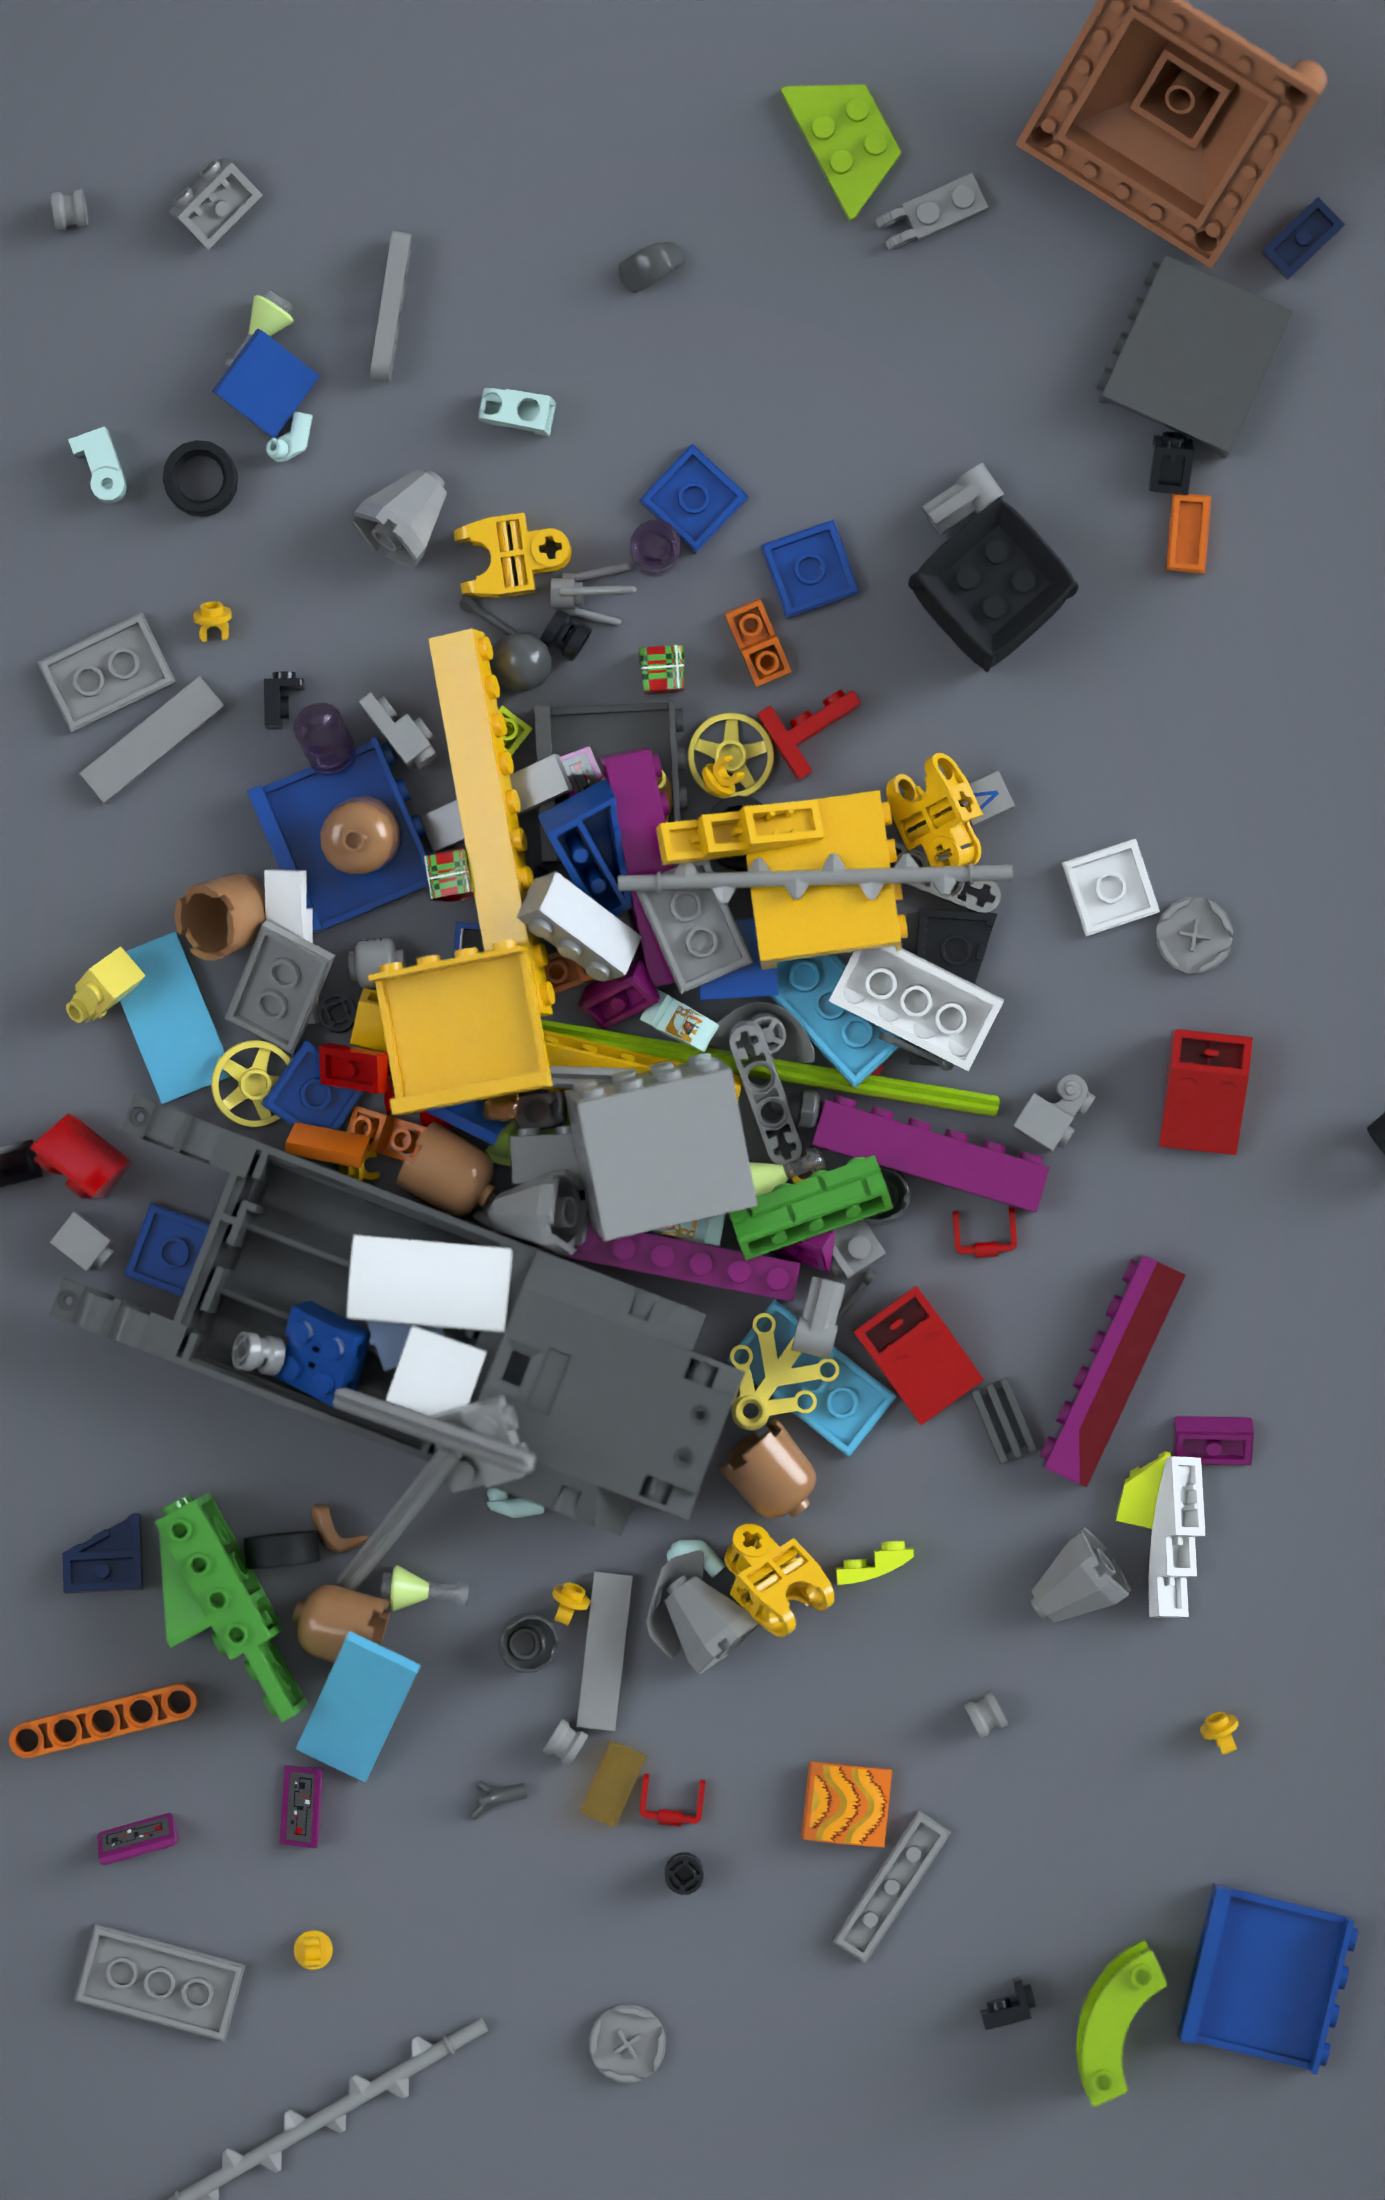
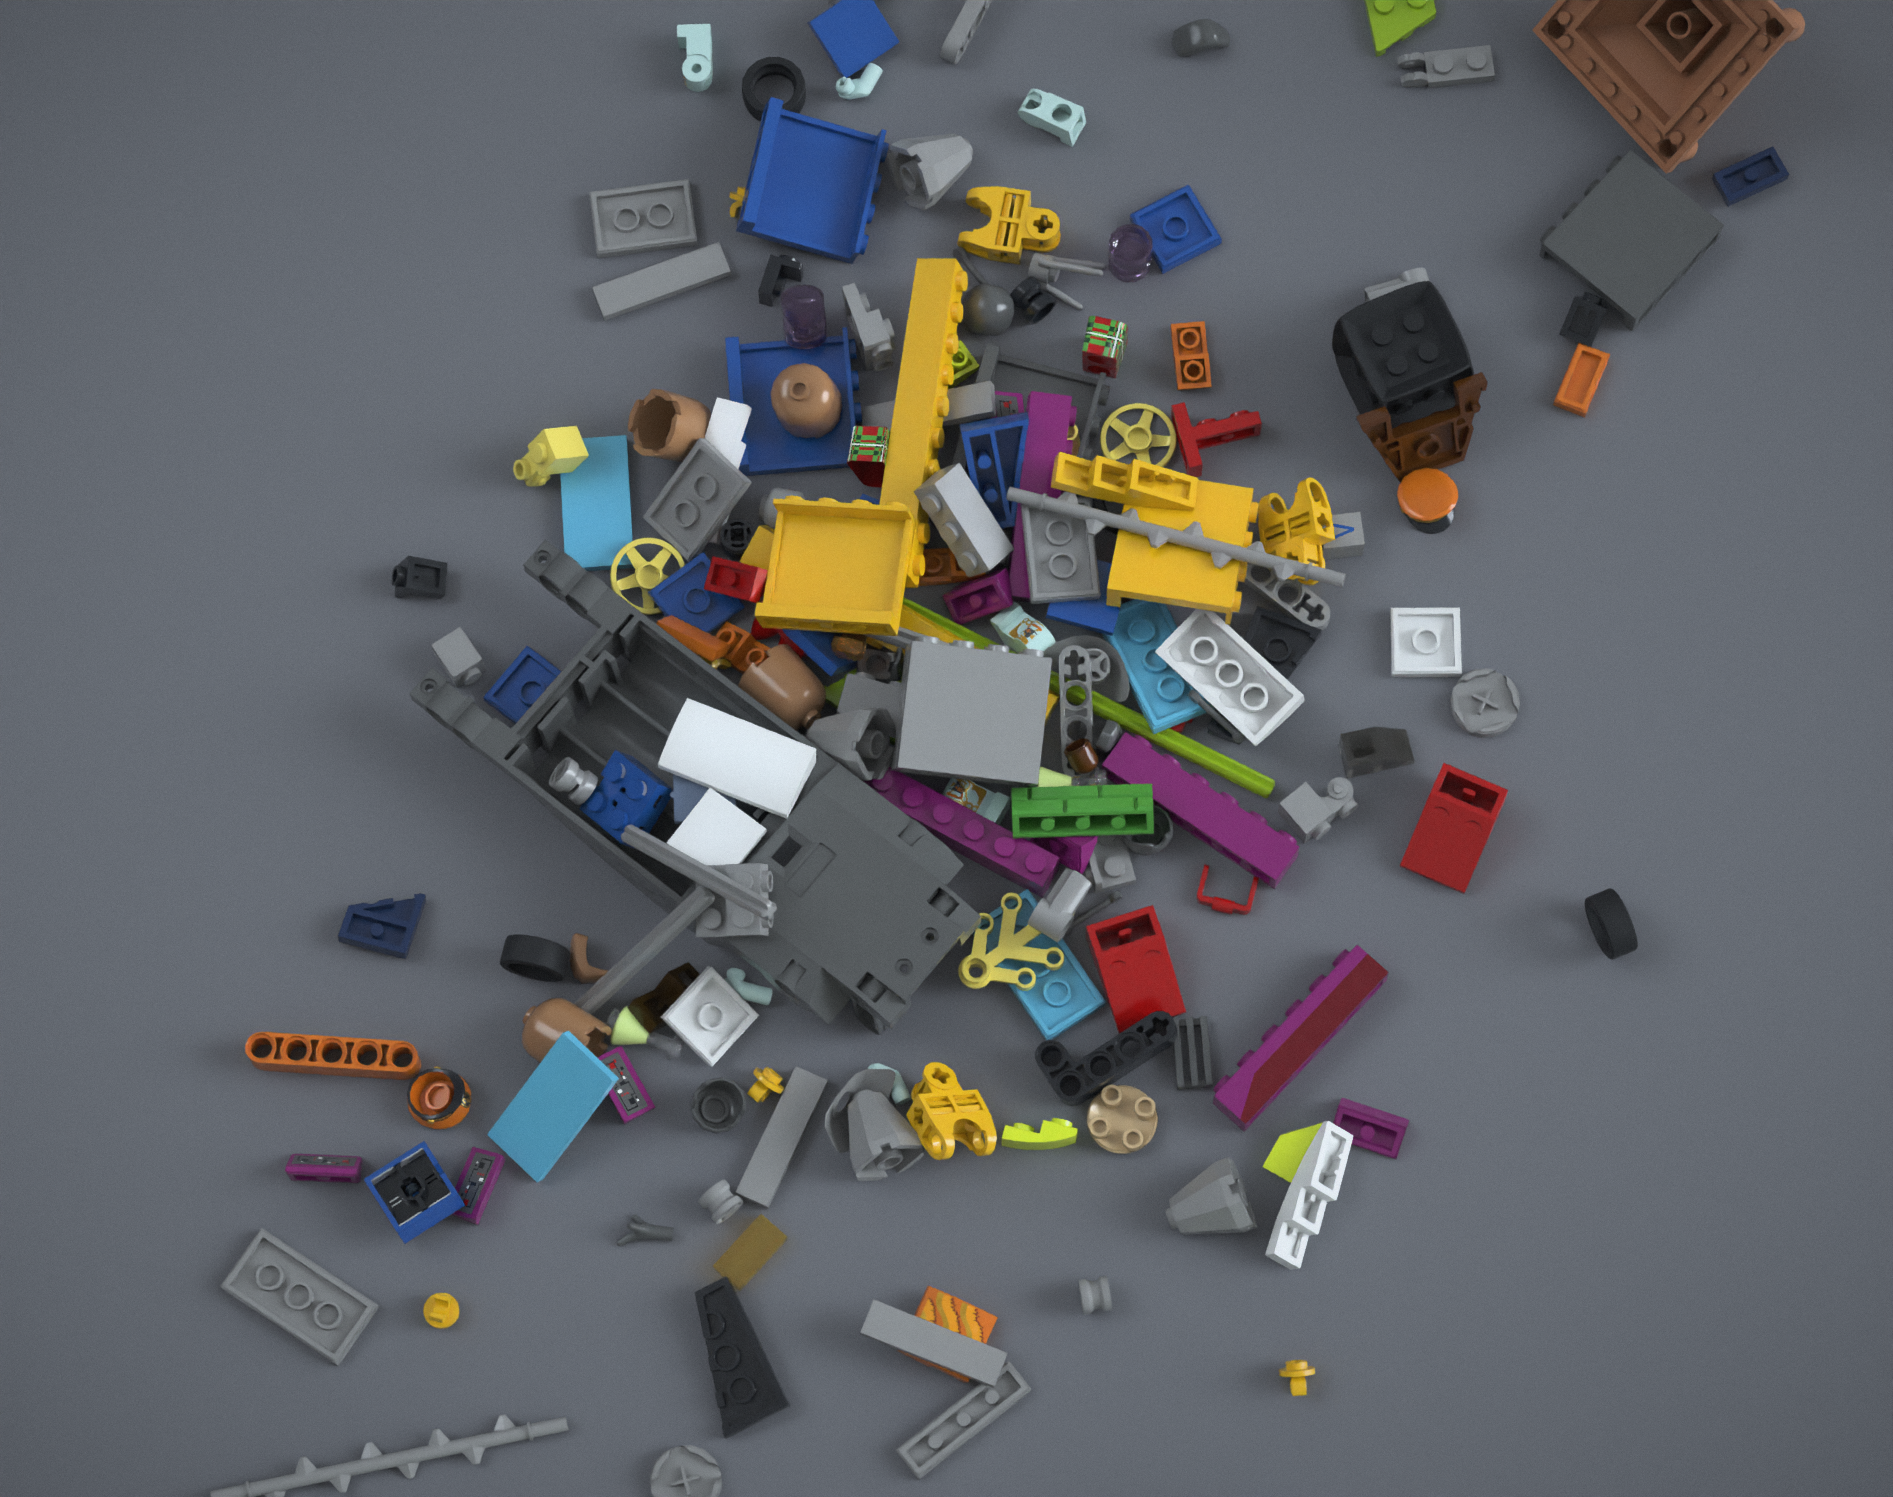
camera: 25 degrees right, 15 degrees down
(81, 1156) = (482, 584): red slope -> none
(212, 1587) = (464, 975): bright green wedge -> none
(231, 1726) = (438, 1098): none -> orange piece
(242, 1840) = (414, 1192): none -> piece
(280, 578) = (811, 184): none -> blue panel
(415, 1643) = (628, 1093): none -> slope
(436, 1541) = (654, 1004): none -> dark brown slope
(486, 1550) = (709, 1016): none -> white tile
(646, 1911) = (740, 1369): none -> black wing
(671, 1817) = (789, 1297): red piece -> none
(683, 1866) = (787, 1352): black wheel -> none
(717, 779) = (1120, 447): yellow plate -> none
(771, 1472) = (976, 1026): medium nougat cylinder -> none
(788, 1146) = (1081, 756): none -> reddish brown piece
(810, 569) = (1254, 312): blue tile -> none
(837, 1823) = (933, 1343): none -> light grey tile
(922, 1454) = (1110, 1052): none -> black beam
(953, 1517) = (1122, 1119): none -> tan dish
(1048, 668) = (1429, 441): none -> reddish brown wing
(1064, 726) = (1428, 499): none -> orange piece
(1096, 1031) = (1374, 750): none -> clear smoke slope

